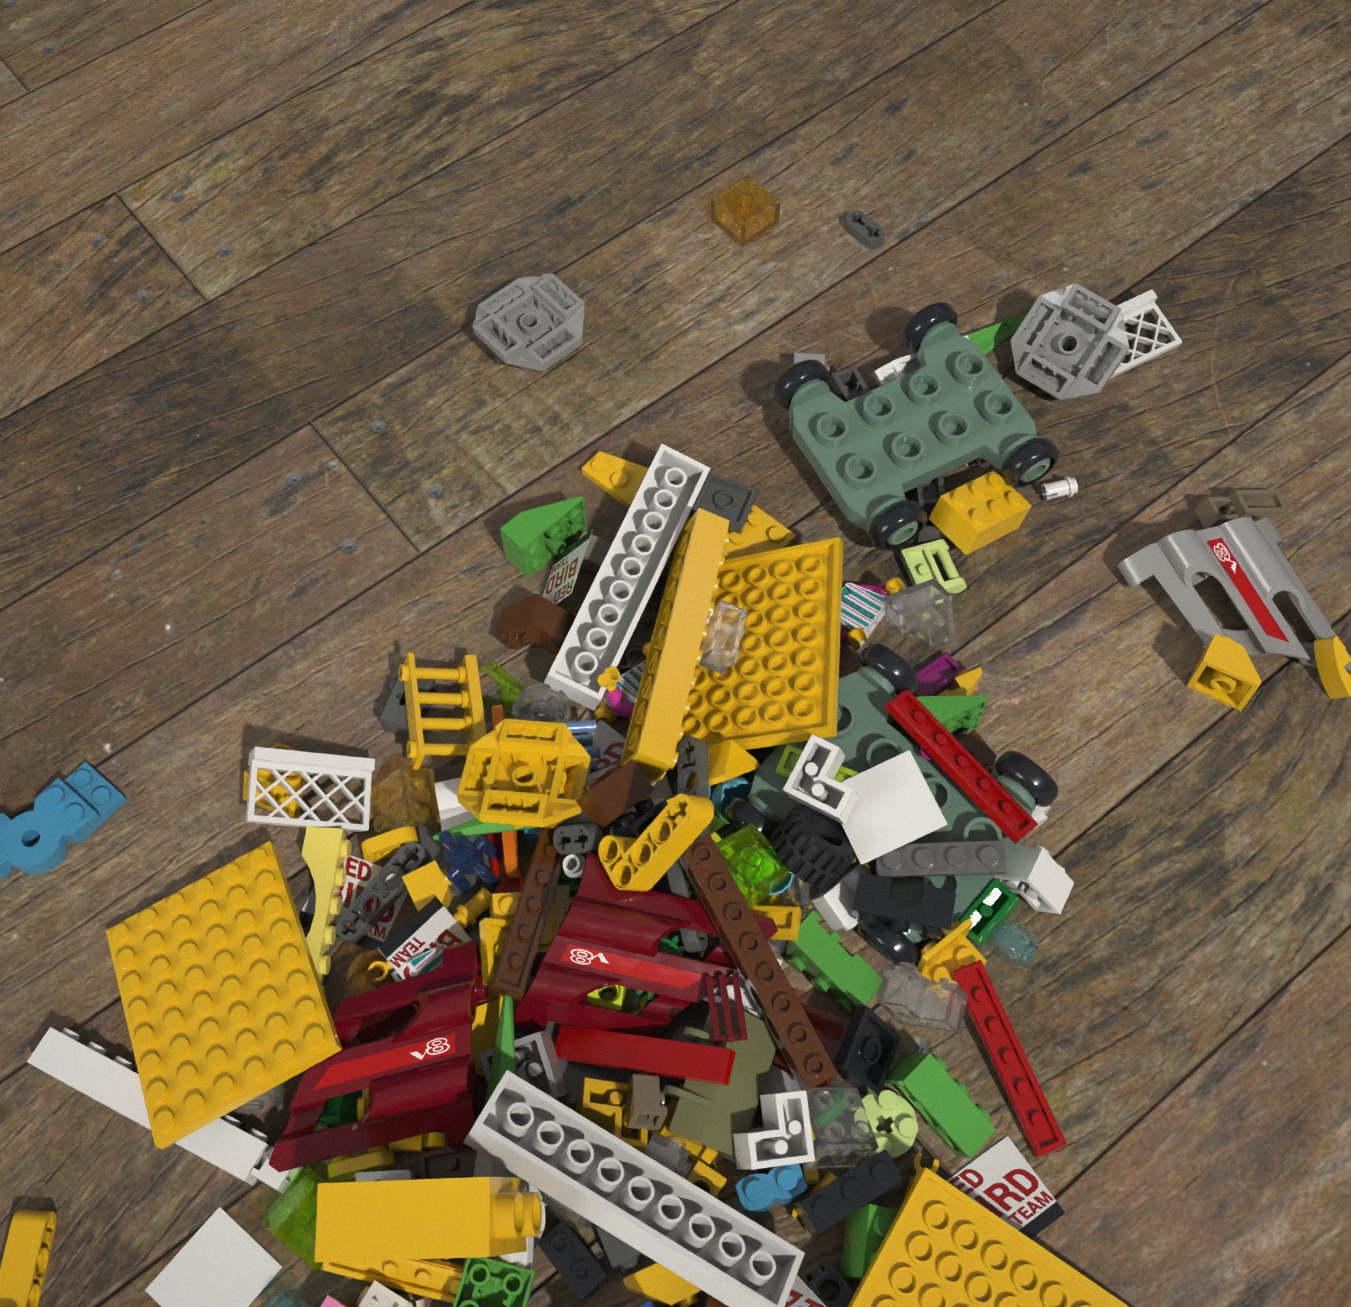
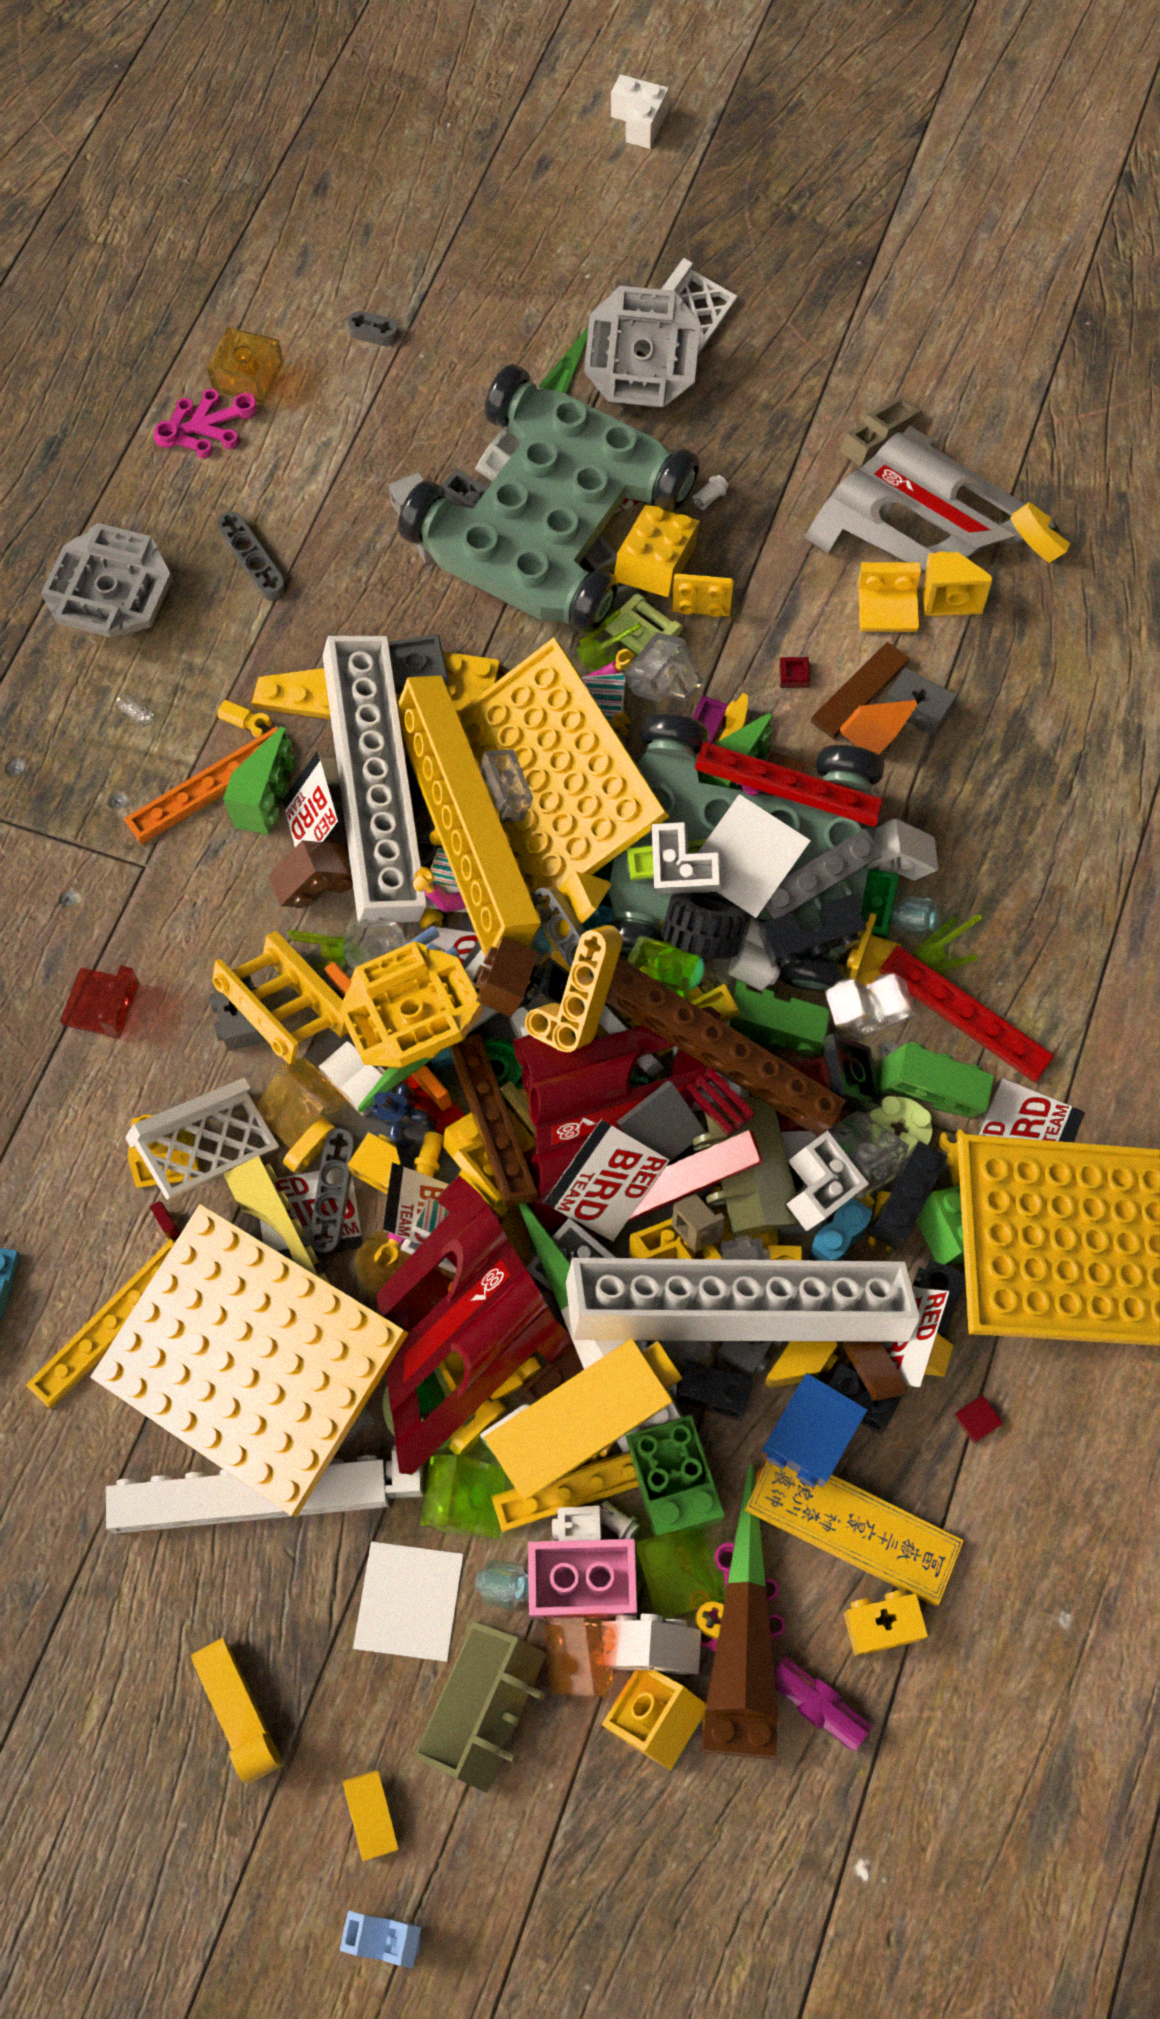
camera: 30 degrees left, 5 degrees up
(125, 902) = (94, 1338): none -> yellow tile
(242, 838) = (165, 1220): none -> dark red tile
(315, 638) = (101, 1001): none -> clear red bracket
(483, 515) = (189, 795): none -> orange tile
(492, 432) = (140, 714): none -> clear pin
(567, 475) = (243, 717): none -> yellow bar
(573, 865) = (506, 1061): white pin -> none
(576, 833) = (498, 1039): dark grey beam -> none
(589, 1018) = (606, 1180): none -> sticker
(656, 356) = (251, 555): none -> dark grey beam
(660, 236) = (173, 433): none -> dark pink plant
(665, 999) = (662, 1122): none -> dark grey tile
(874, 566) = (591, 652): none -> clear neon green plant
(998, 569) = (702, 595): none -> yellow bracket
(1008, 985) = (932, 953): none -> clear neon green plant
(1039, 674) = (794, 672): none -> dark red tile
(1080, 756) = (877, 724): none -> orange slope
(1088, 719) = (860, 689): none -> reddish brown tile
(1134, 758) = (932, 700): none -> dark grey brick
(1161, 653) = (888, 596): none -> yellow bracket
(1191, 158) = (641, 106): none -> white brick

